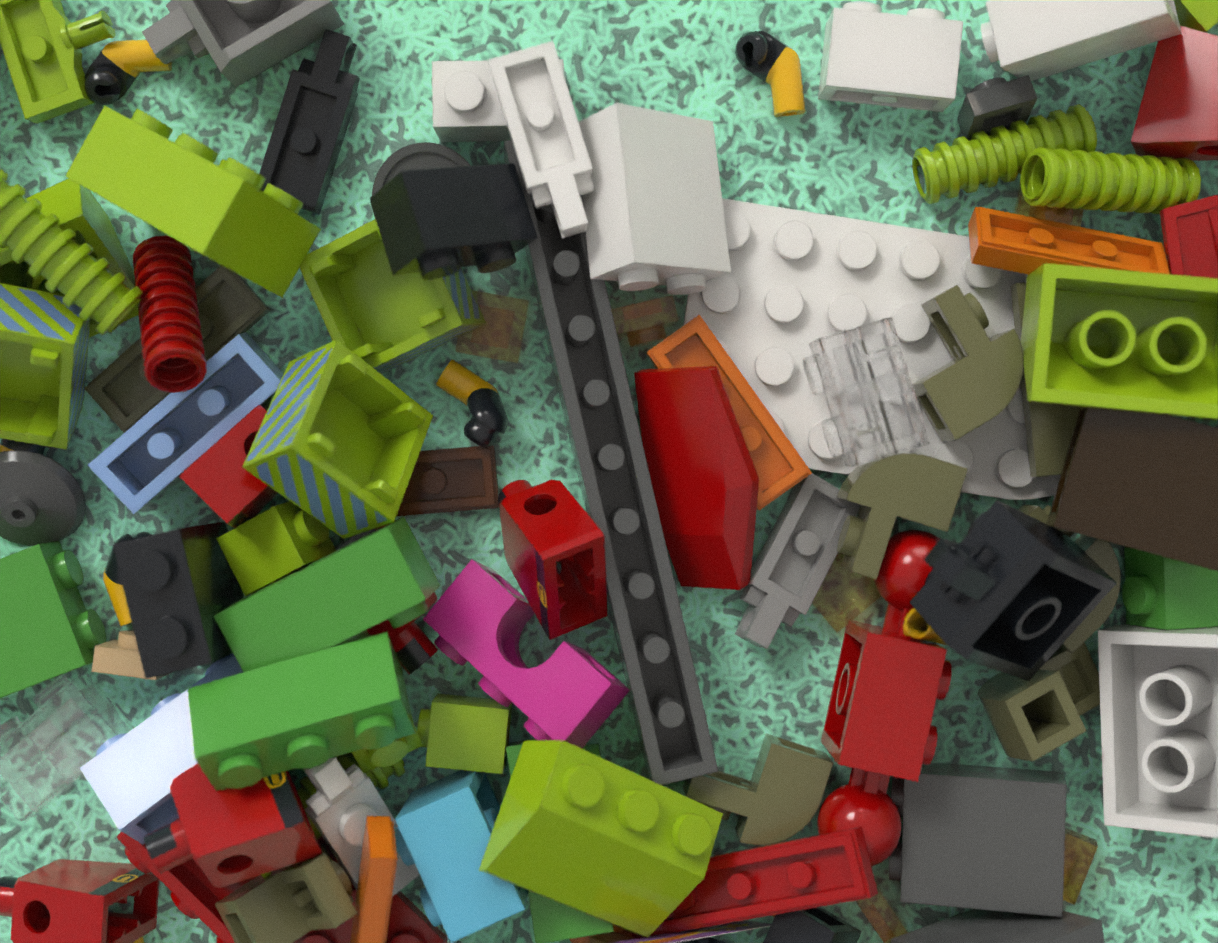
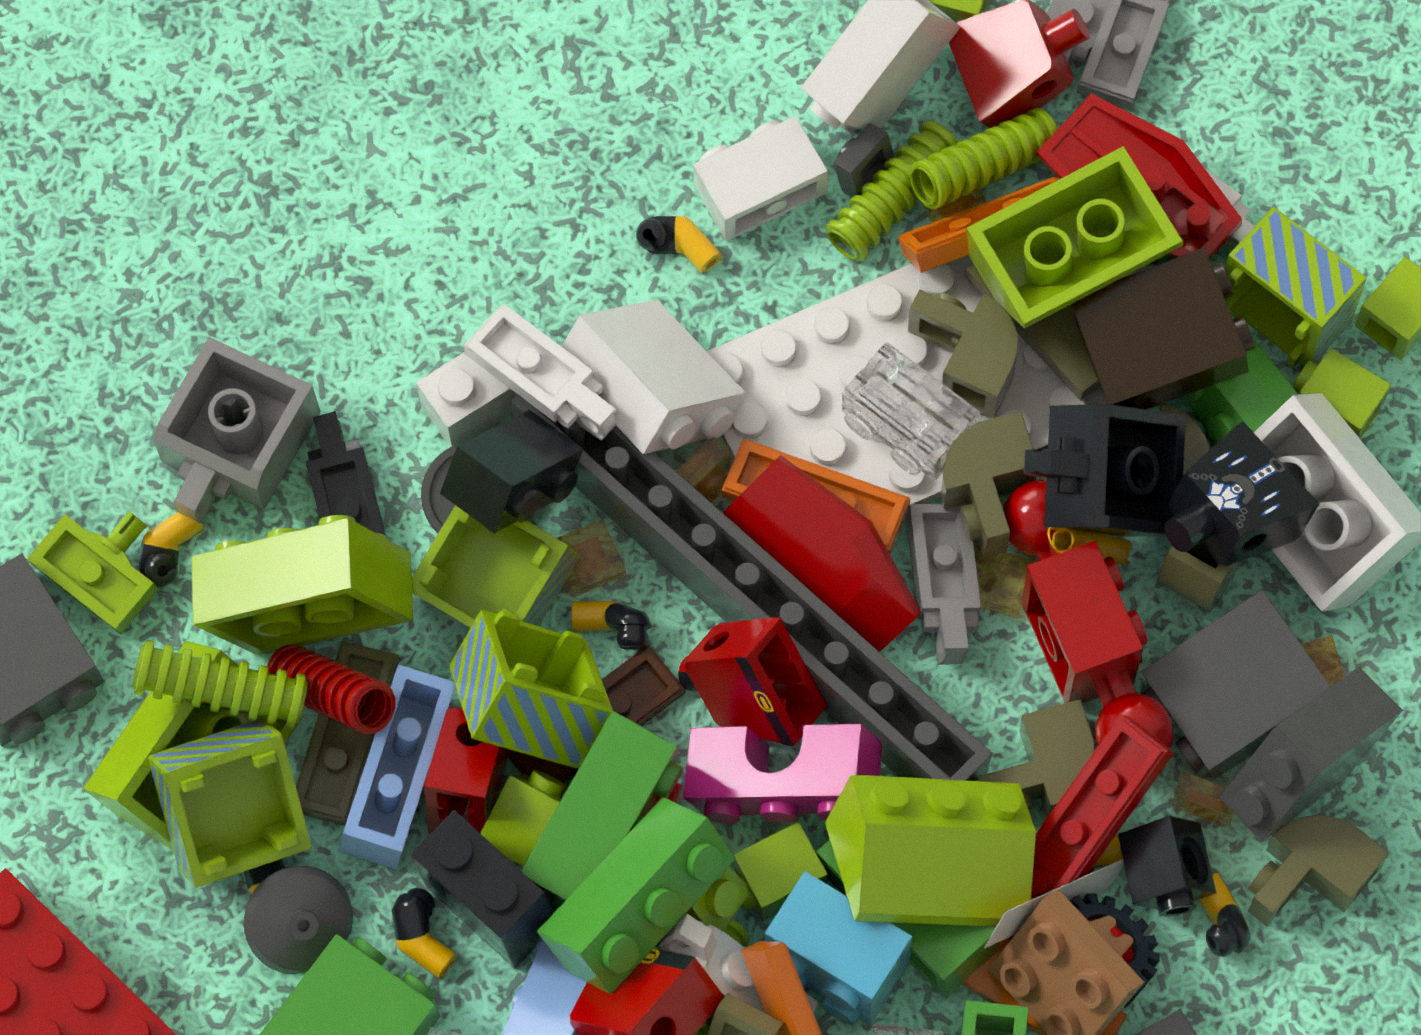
camera: 30 degrees left, 20 degrees down
(120, 657) = (467, 986): tan plate -> none
(1105, 696) = (1238, 501): none -> black torso

